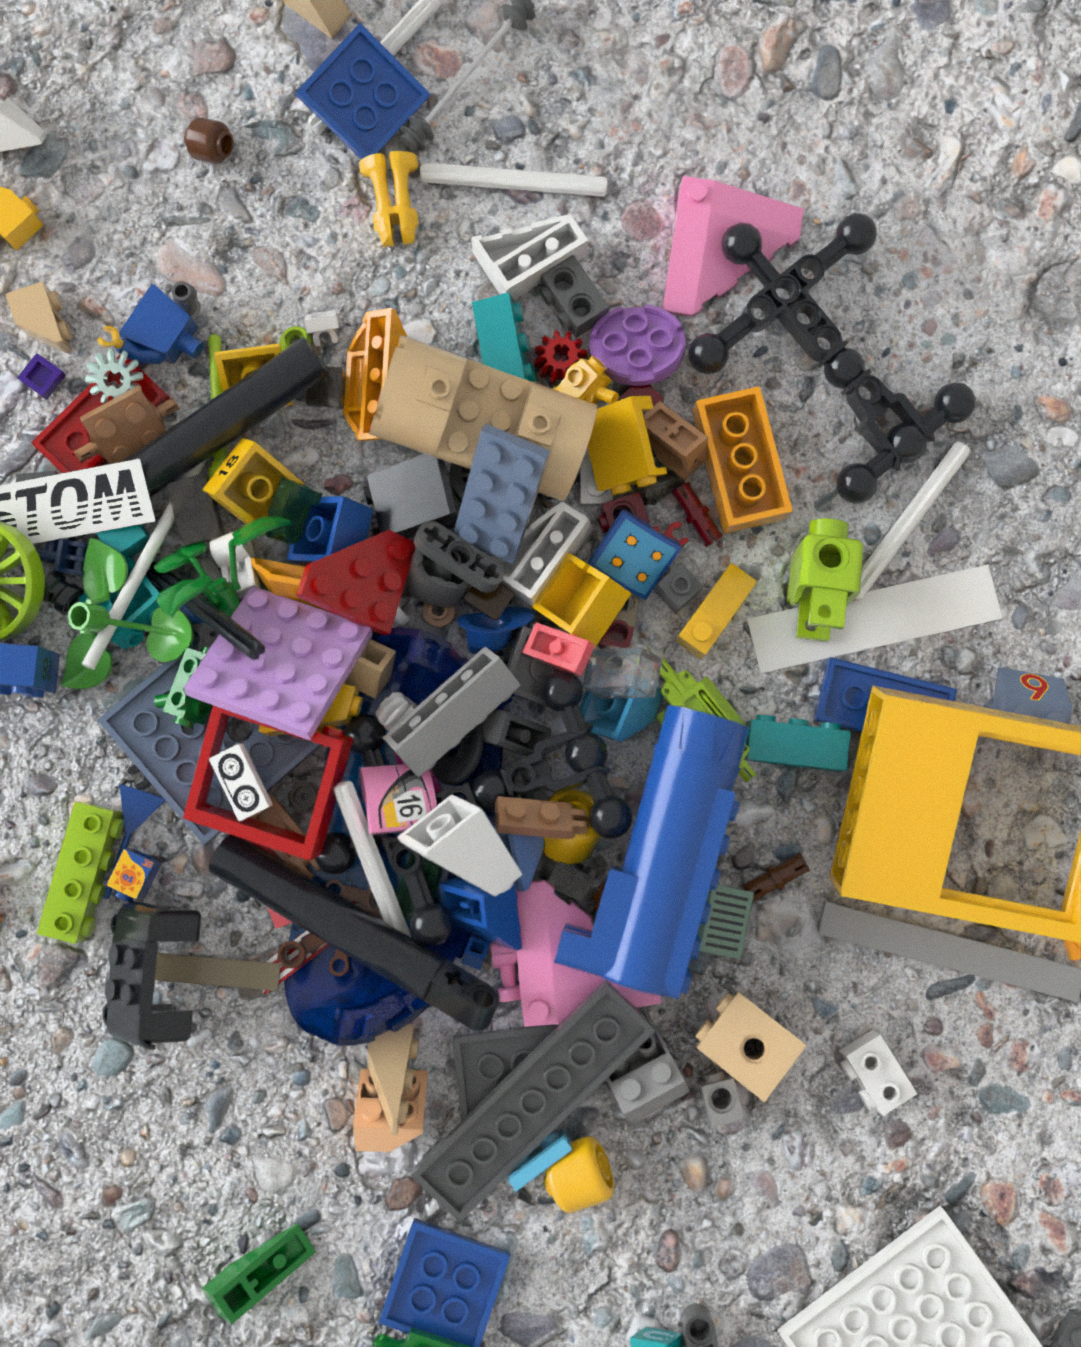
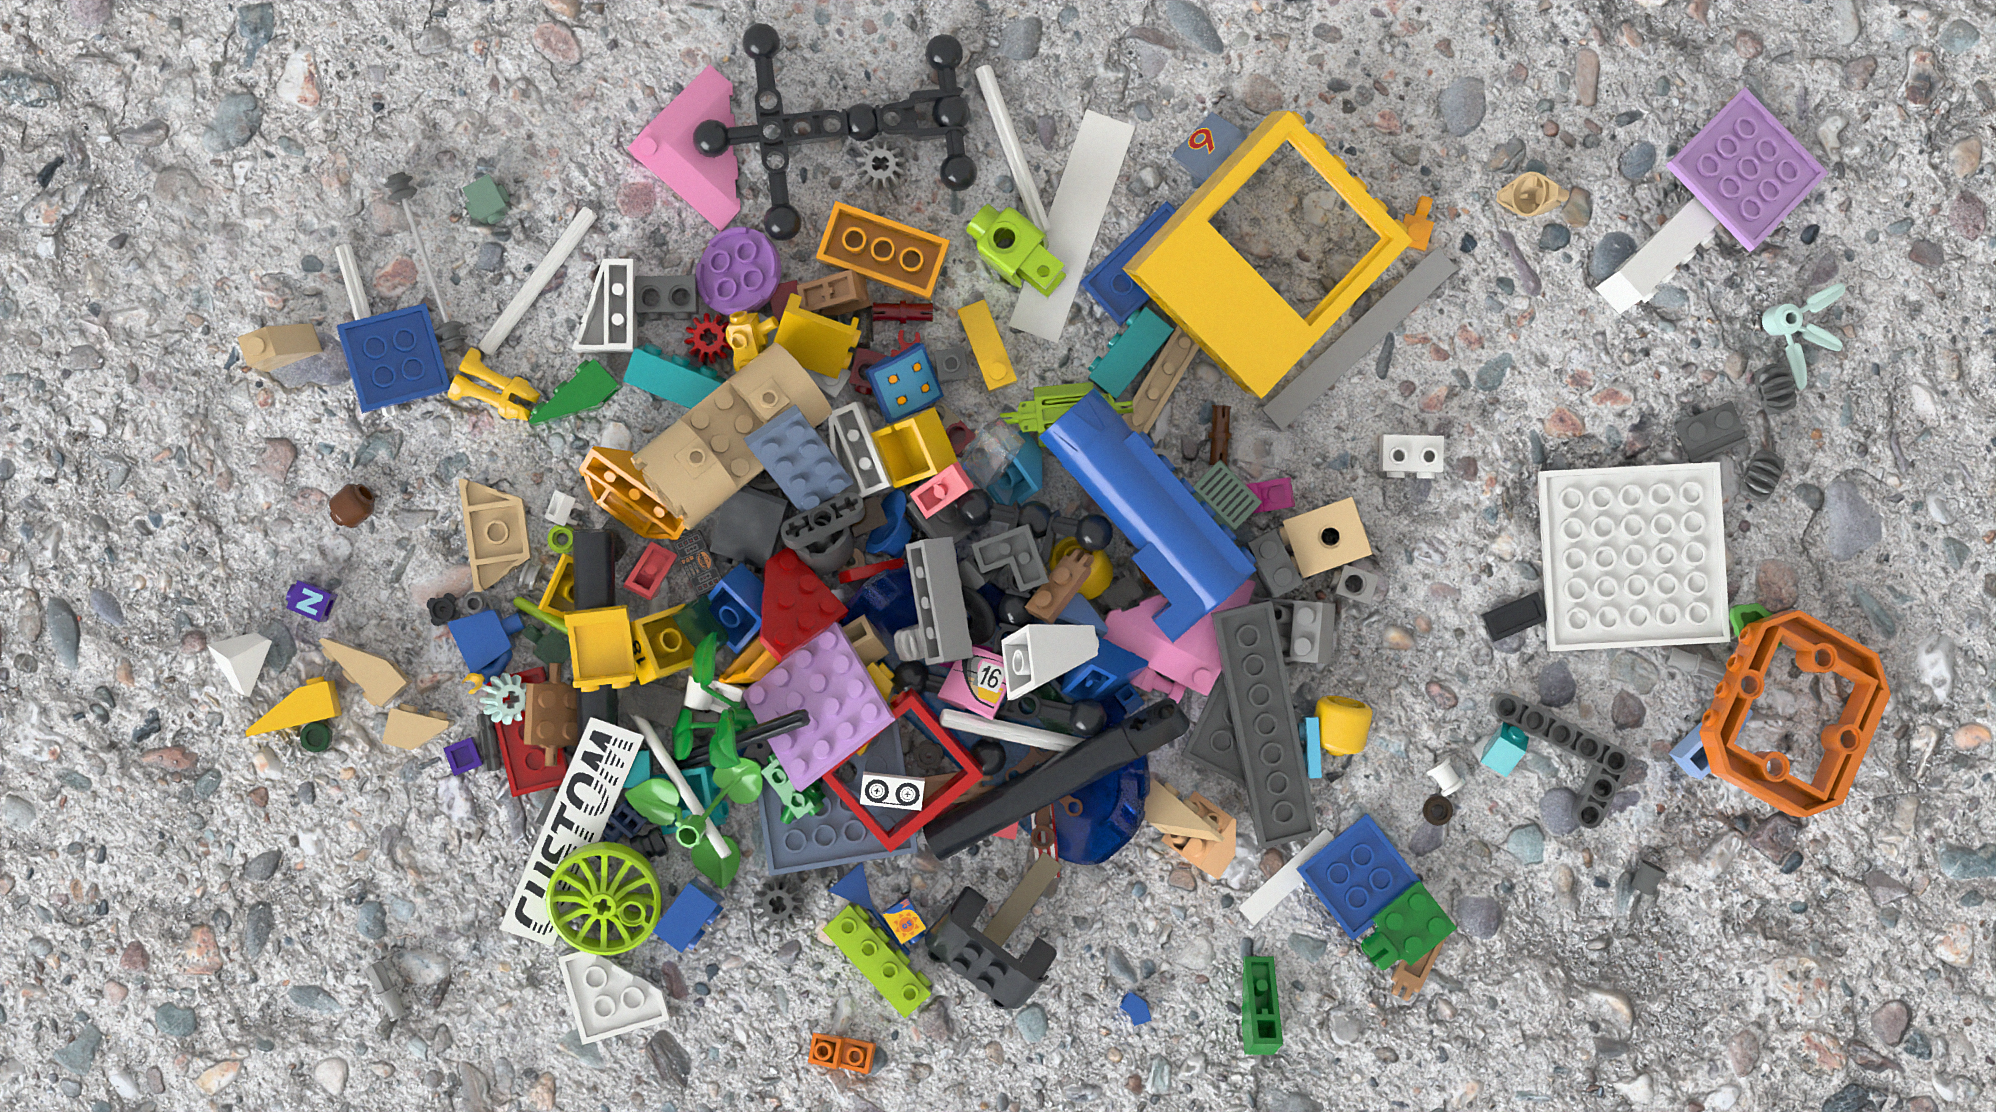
camera: 50 degrees left, 5 degrees up
(66, 393) = (488, 743): none -> dark grey axle
(67, 254) = (376, 674): none -> tan slope
(84, 755) = (768, 906): none -> dark grey gear
(100, 158) = (310, 600): none -> dark purple brick
(162, 269) = (435, 605): none -> black plate
(184, 1149) = (1136, 1007): none -> blue piece
(190, 393) = (550, 648): none -> clear green plate
(210, 427) = (601, 647): none -> yellow panel
(245, 333) = (530, 574): none -> light grey bush
(262, 279) = (494, 533): none -> tan wing
(313, 435) = (650, 571): none -> coral slope
(351, 472) = (698, 562): none -> tile
(393, 1212) = (1282, 882): none -> white sticker
(435, 626) = (869, 570): none -> red tile
(440, 278) = (583, 393): none -> green slope
(548, 753) = (1019, 550): none -> dark grey plate
(556, 90) = (487, 200): none -> sand green brick
(560, 1332) = (1444, 817): none -> dark brown plate
(593, 1309) = (1445, 776): none -> white bush
(688, 1016) = (1273, 564): none -> dark grey brick
(754, 966) = (1274, 494): none -> dark pink slope
(788, 1274) = (1514, 617): none -> black tile
(793, 790) = (1161, 381): none -> tan plate
(826, 408) = (881, 155): none -> light grey gear

